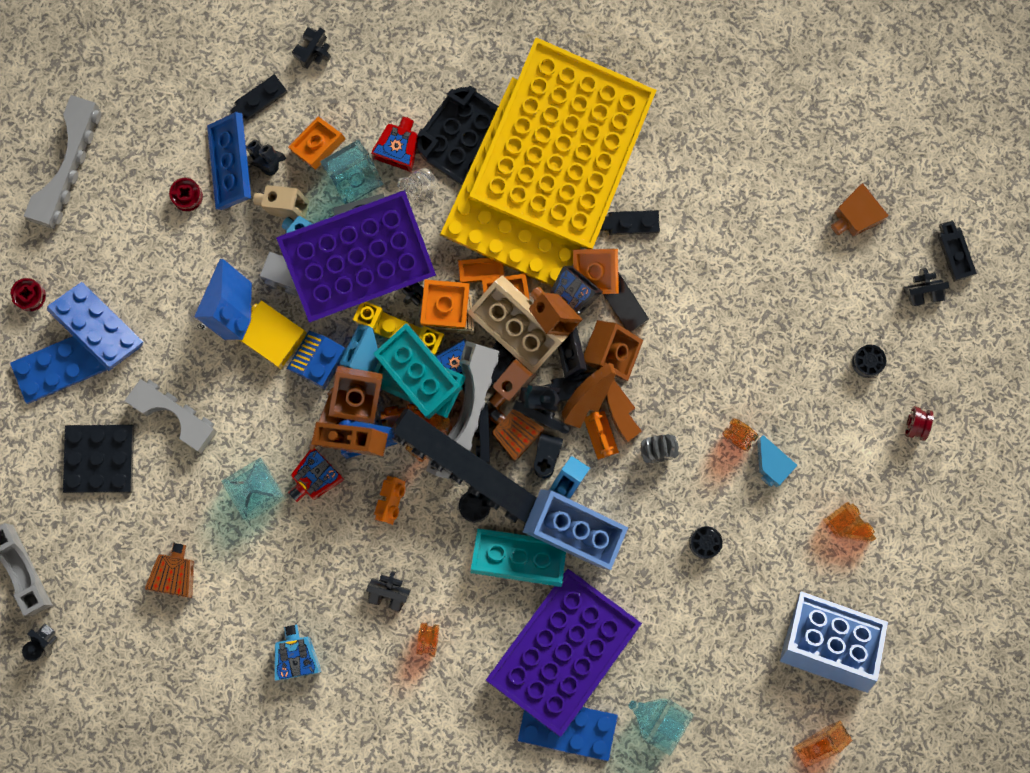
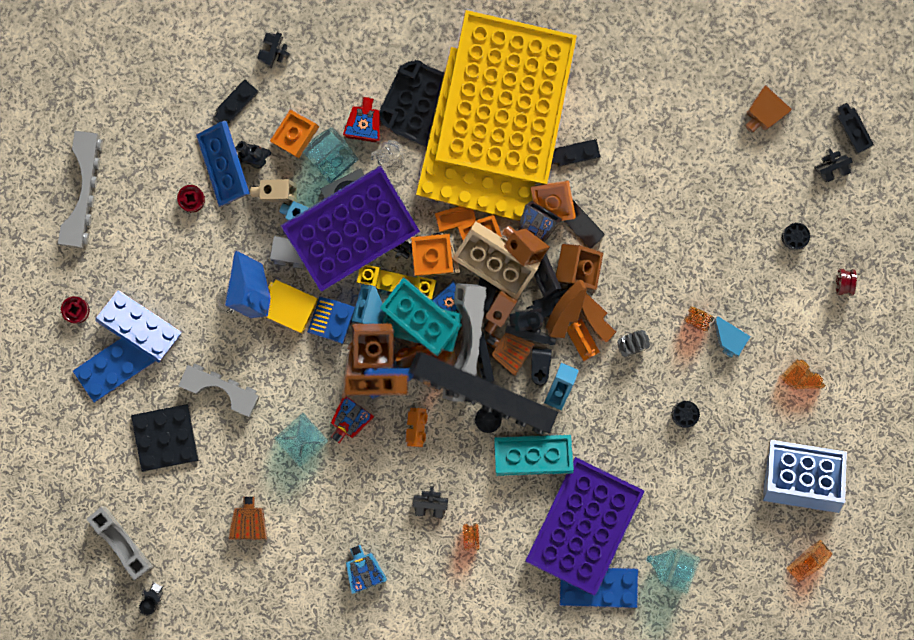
camera: 15 degrees left, 5 degrees up
(575, 529) = (576, 424): medium blue brick -> none

